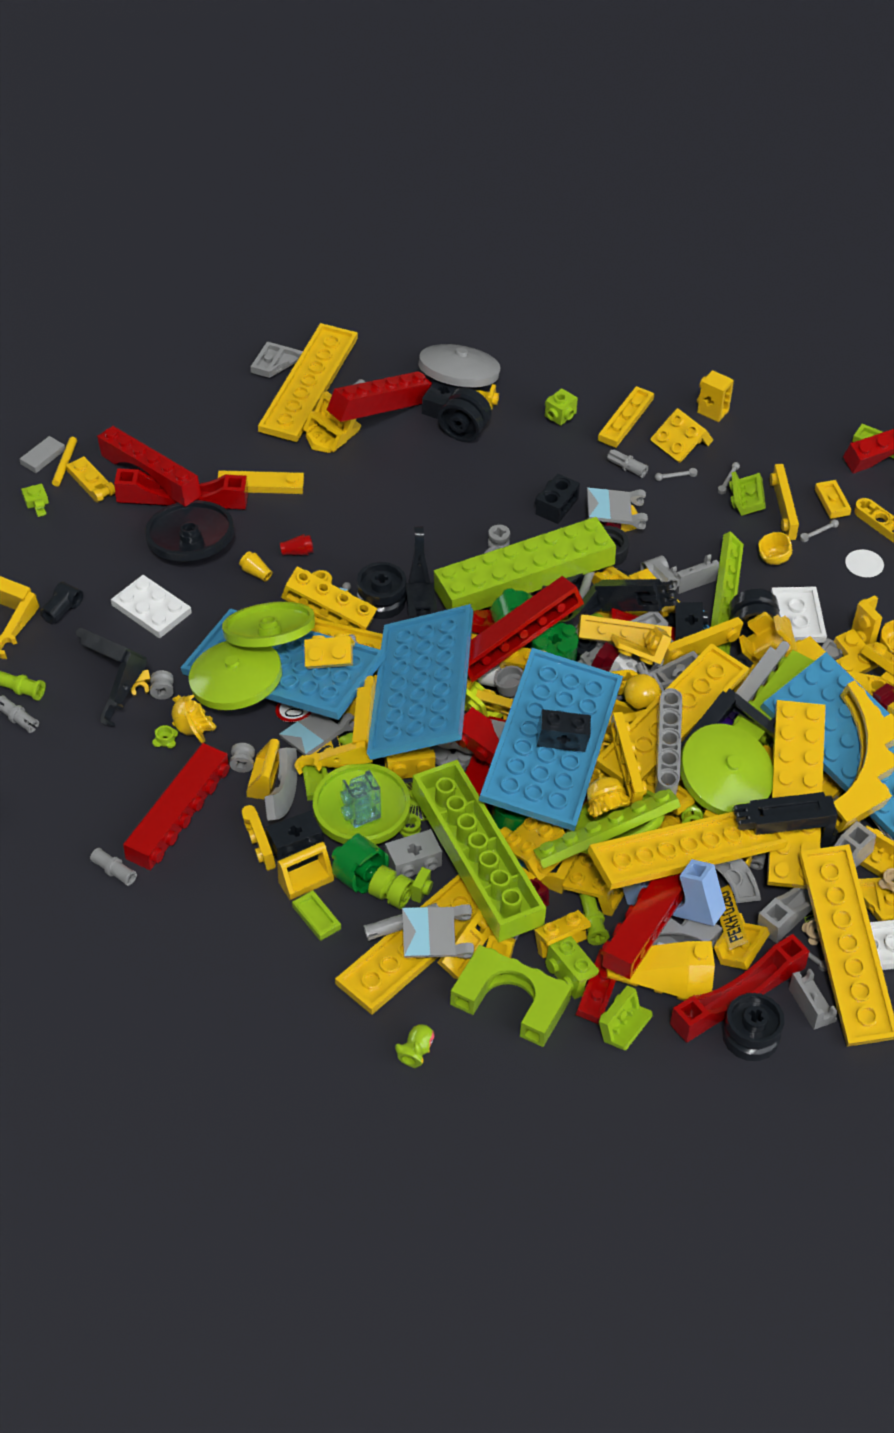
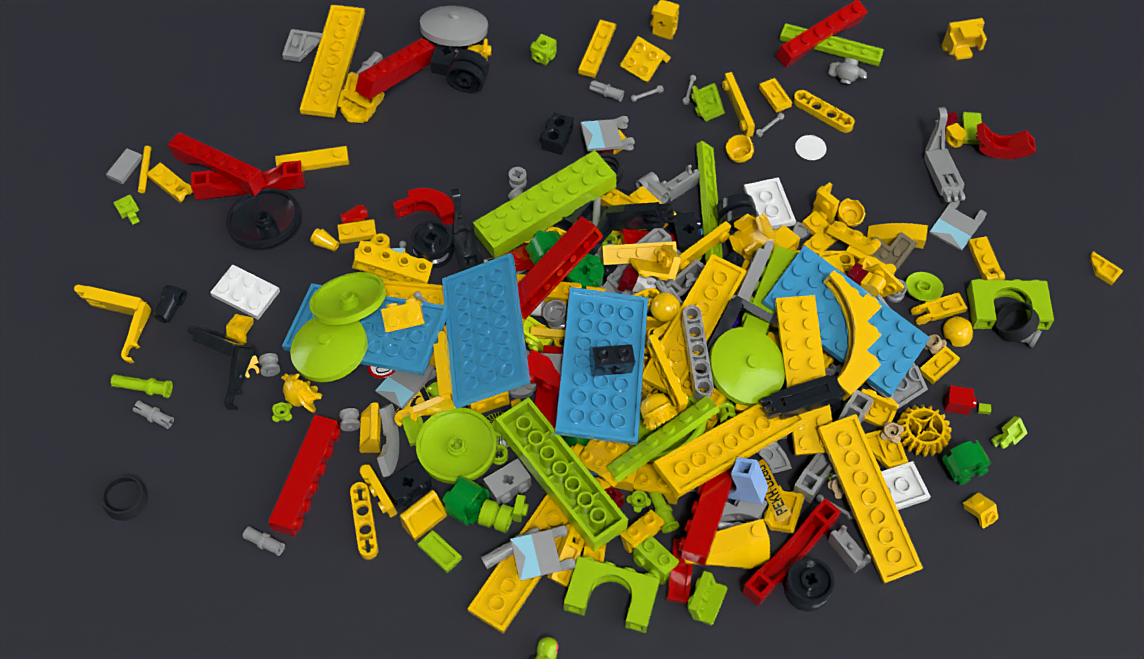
camera: 10 degrees left, 10 degrees up
(136, 639) = (239, 326): none -> yellow bracket
(234, 866) = (362, 520): none -> yellow beam
(286, 563) = (356, 231): none -> yellow plate
(361, 800) = (457, 447): clear light blue hinge -> none
(381, 543) = (426, 200): none -> red arch
(566, 897) = (638, 506): none -> lime plate

